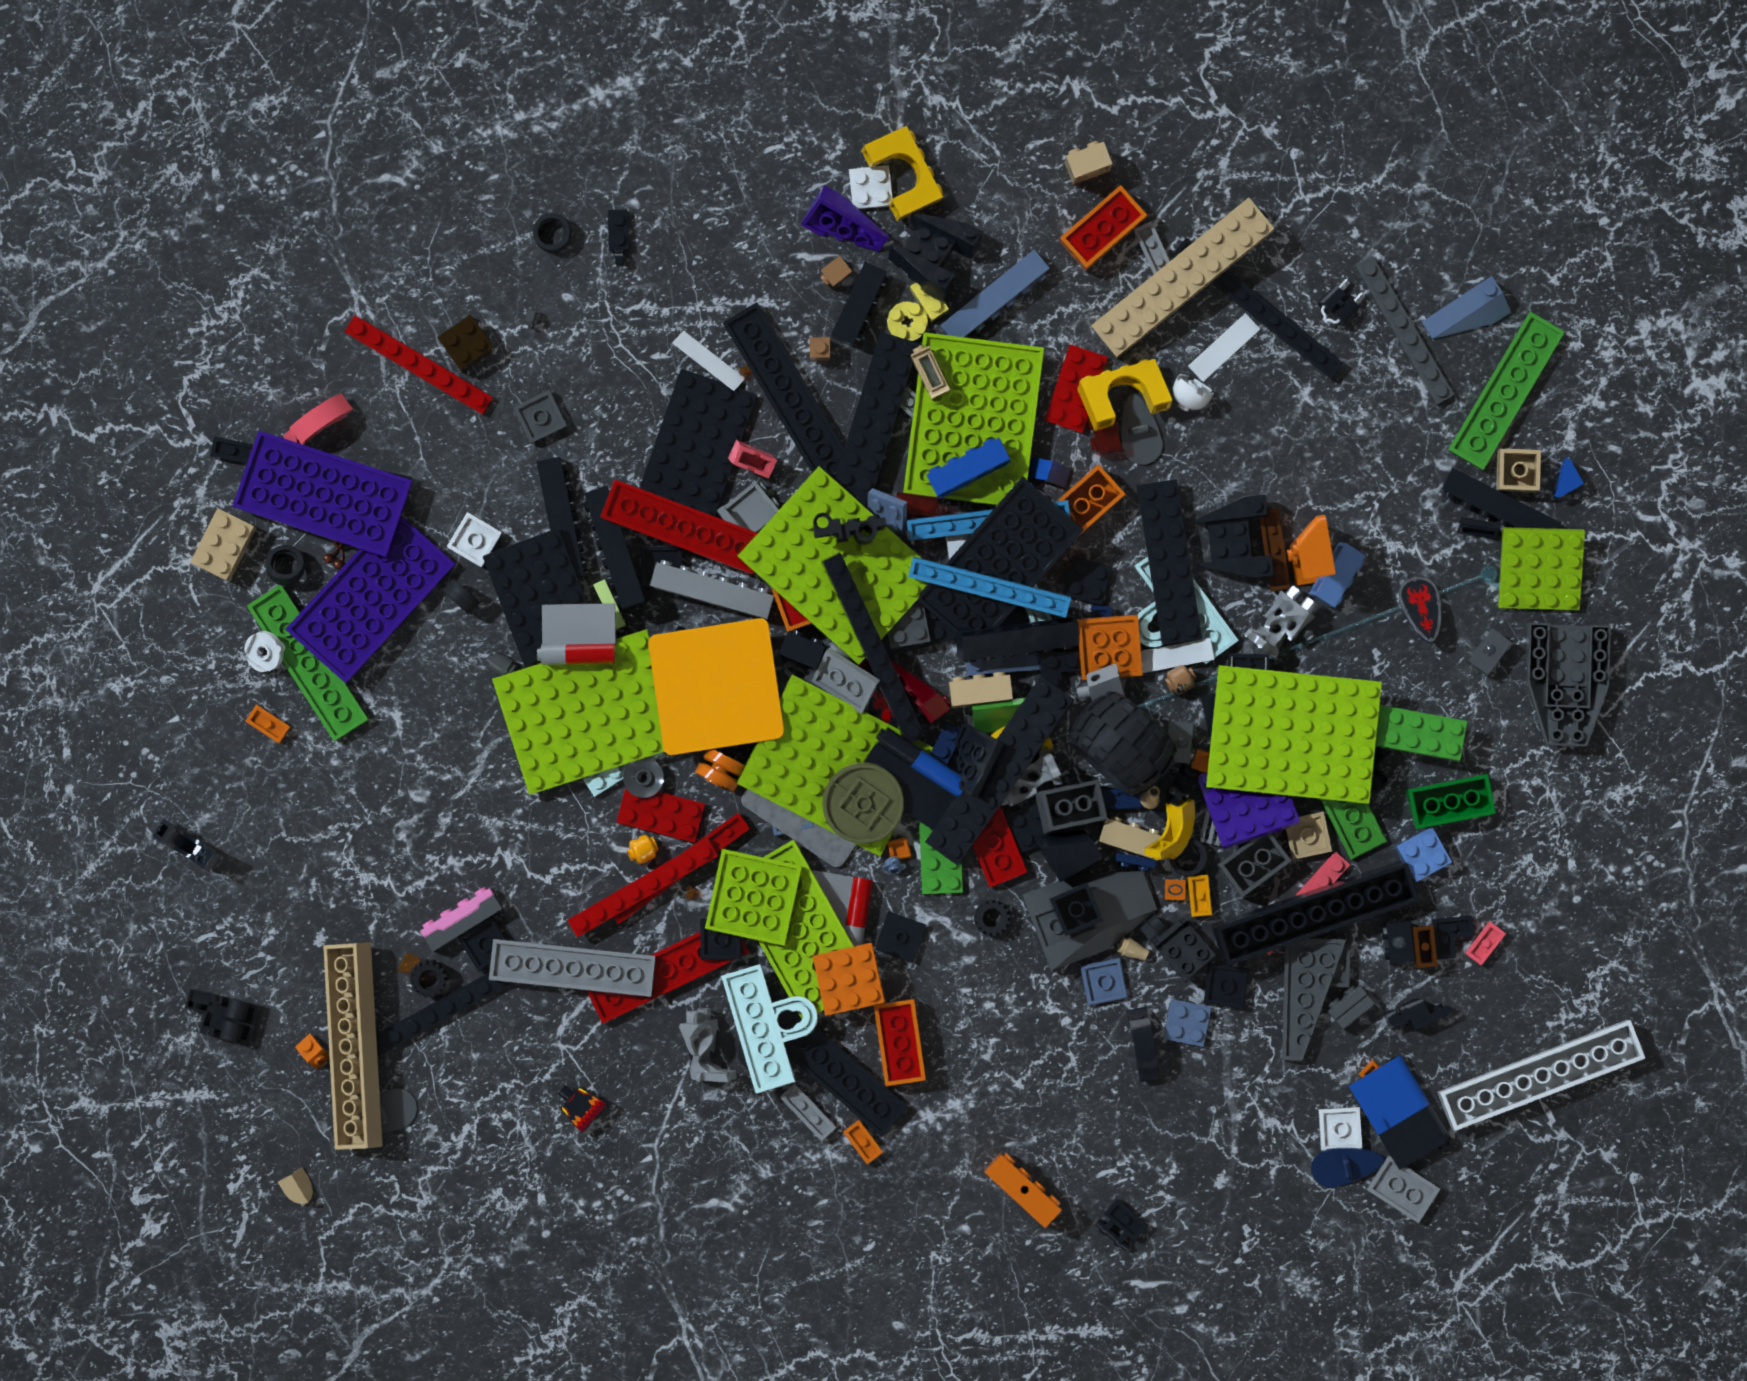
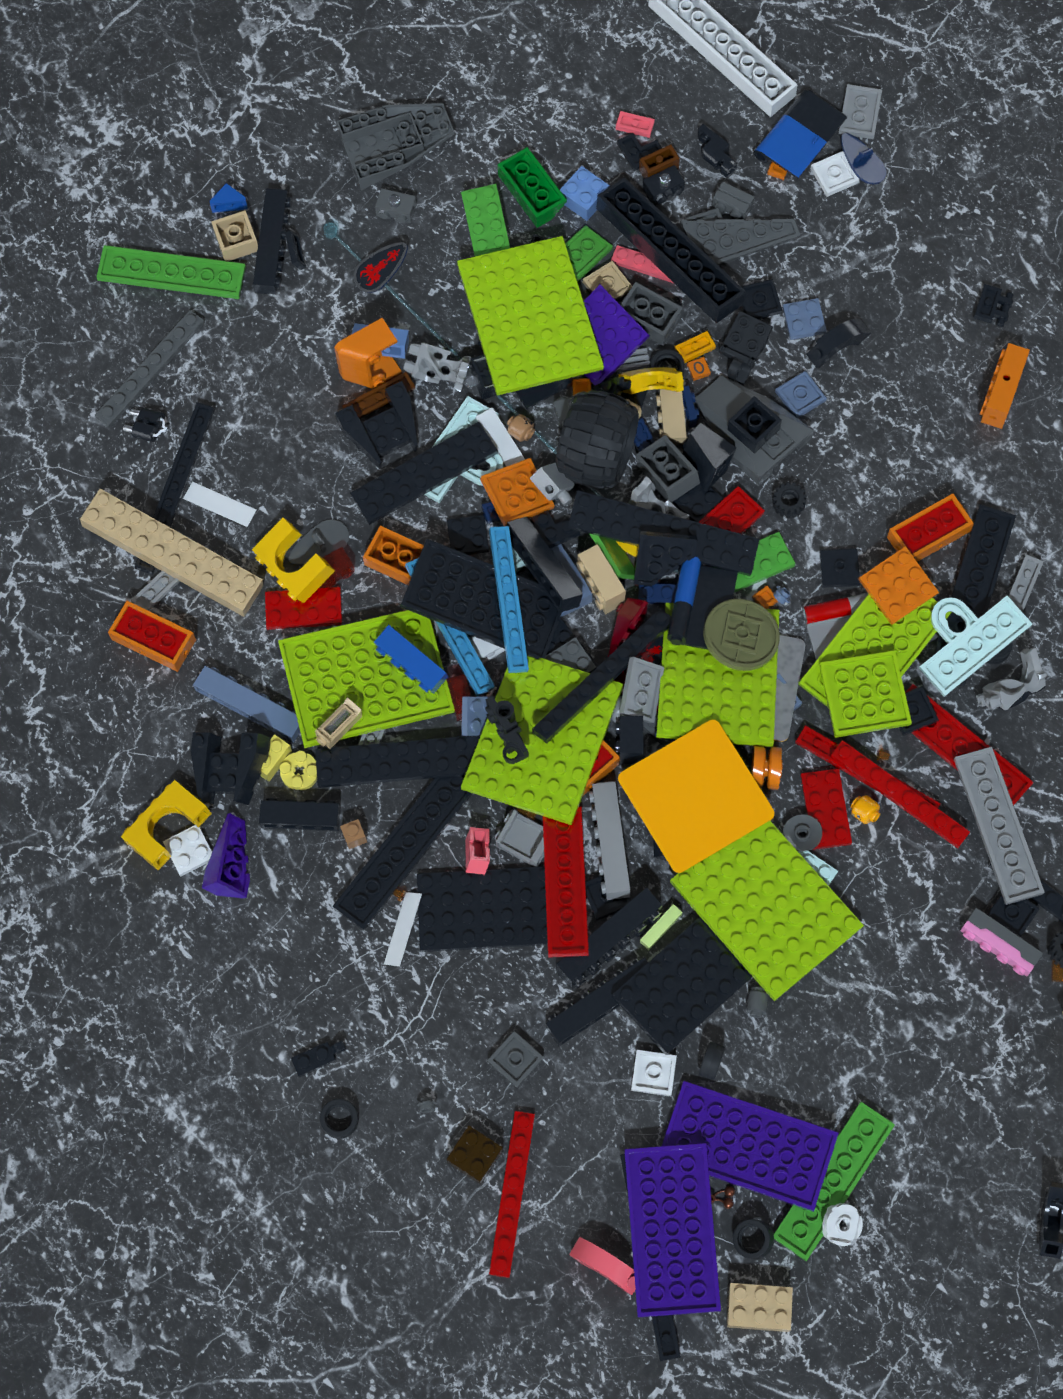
camera: 110 degrees left, 15 degrees down
(267, 724) = (906, 1194): orange plate -> none
(578, 634) = (702, 936): light grey door -> none
(835, 272) = (278, 848): medium nougat brick -> none
(863, 1141) = (1026, 529): orange plate -> none
(1049, 472) = (385, 599): blue slope -> none
(1088, 162) = (97, 669): tan brick -> none
(1132, 949) = (763, 383): tan cone -> none
(1191, 393) = (270, 510): white cylinder -> none
(1474, 309) = (111, 322): sand blue wedge -> none
(1541, 568) = (310, 190): lime plate -> none

